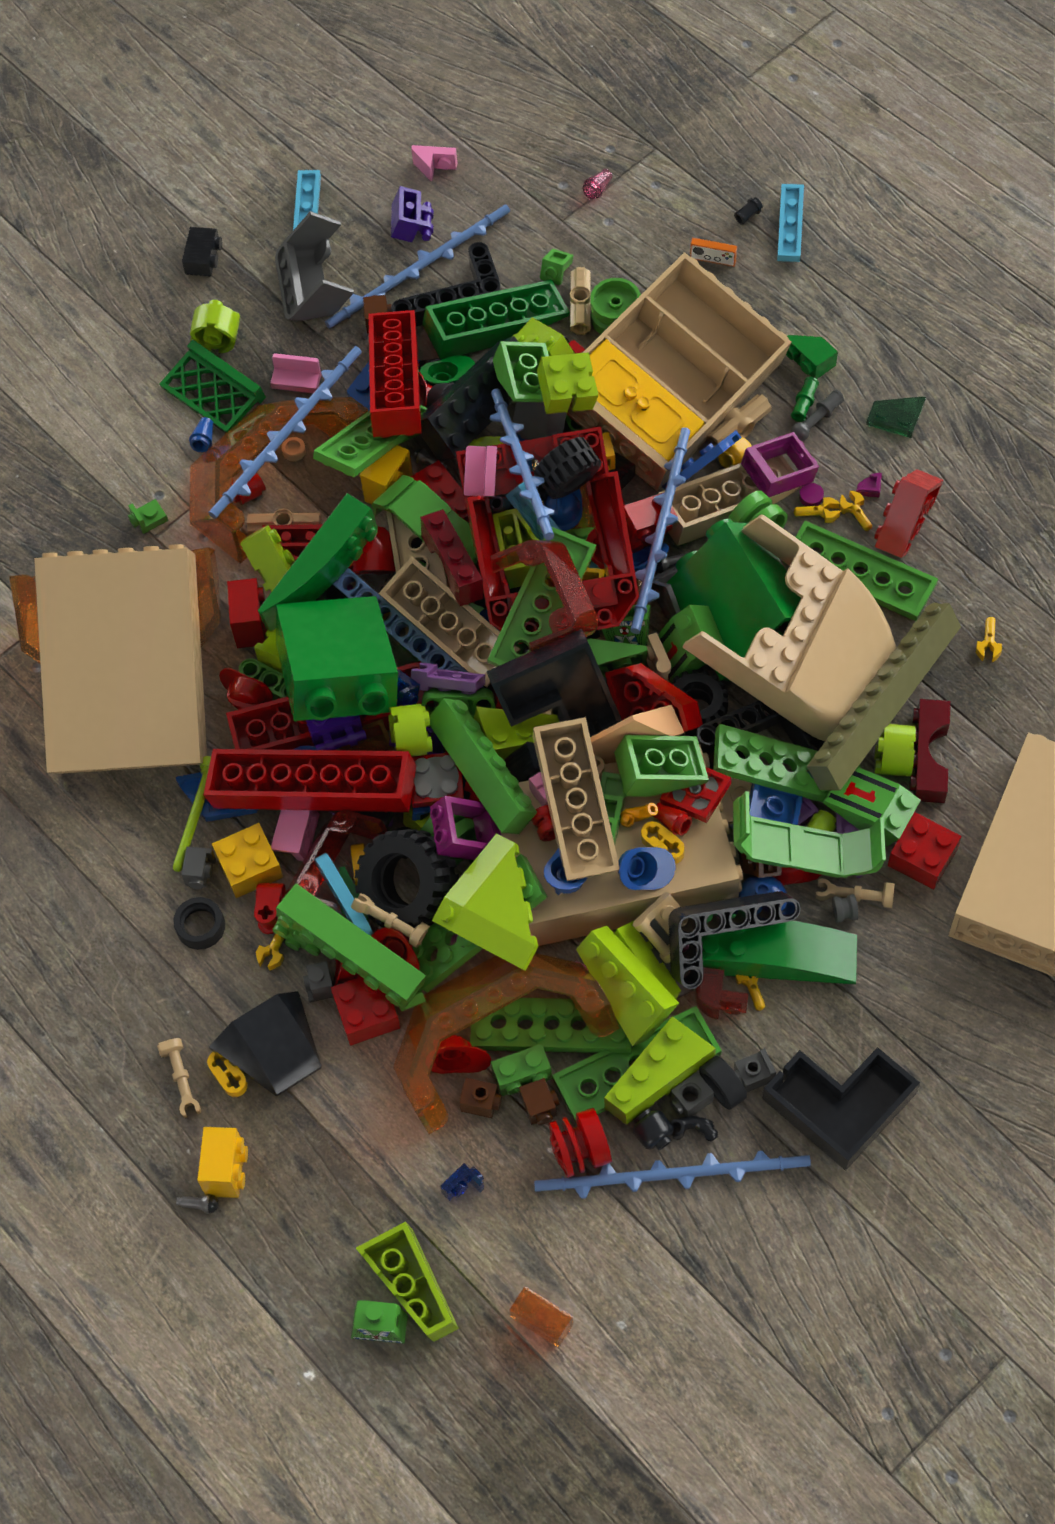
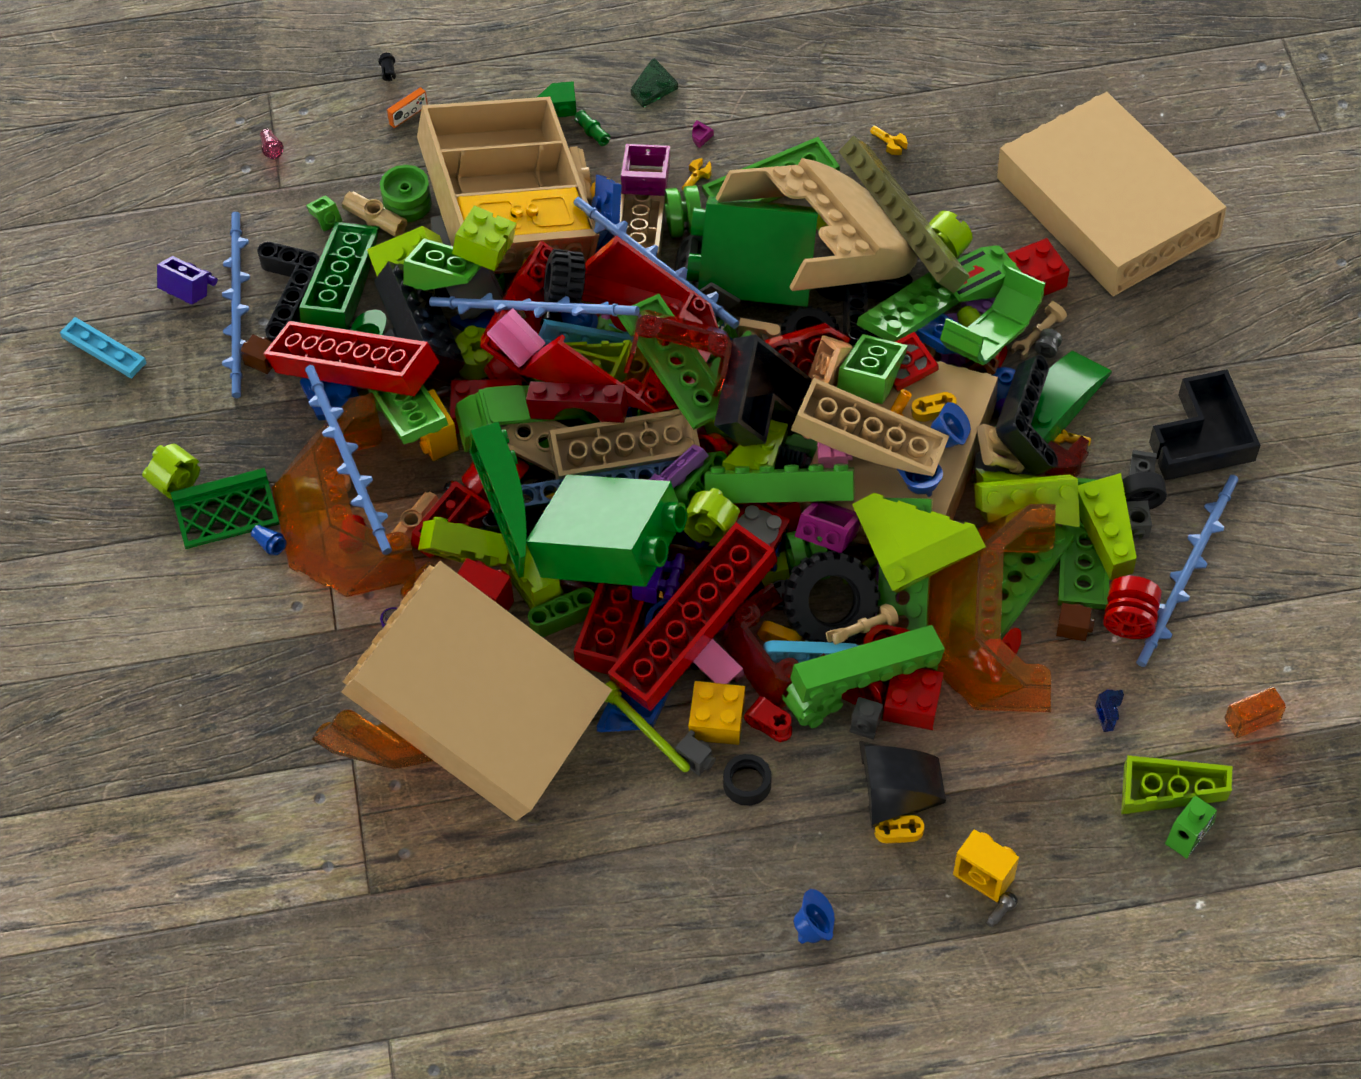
camera: 60 degrees left, 5 degrees down
(95, 1053) = (814, 918): none -> blue piece
(147, 516) = (314, 622): bright green bracket -> none
(172, 1049) = (879, 864): tan piece -> none
(201, 251) = (76, 444): black brick -> none
(244, 690) = (559, 629): red piece -> none
(273, 948) = (807, 738): yellow bar -> none
(295, 373) = (267, 441): bright pink panel -> none
(301, 274) = (171, 390): dark grey windscreen -> none
(430, 157) = (139, 237): bright pink slope -> none
(480, 1098) = (1047, 654): reddish brown brick -> none
(521, 1069) = (1041, 618): bright green brick -> none
(544, 824) = (868, 472): red wheel -> none
(653, 1129) = (1150, 558): black head -> none
(673, 819) = (921, 387): red cone -> none
(680, 629) = (763, 299): bright green slope -> none
(702, 1125) = (1163, 527): black piece -> none
(790, 222) = (423, 48): medium azure plate -> none
(811, 494) = (679, 172): magenta tile -> none
(824, 409) = (611, 122): dark grey pin -> none
(858, 501) = (711, 153): yellow bar -> none
(904, 516) = (750, 118): red brick -> none
(930, 778) = (984, 230): dark red arch -> none

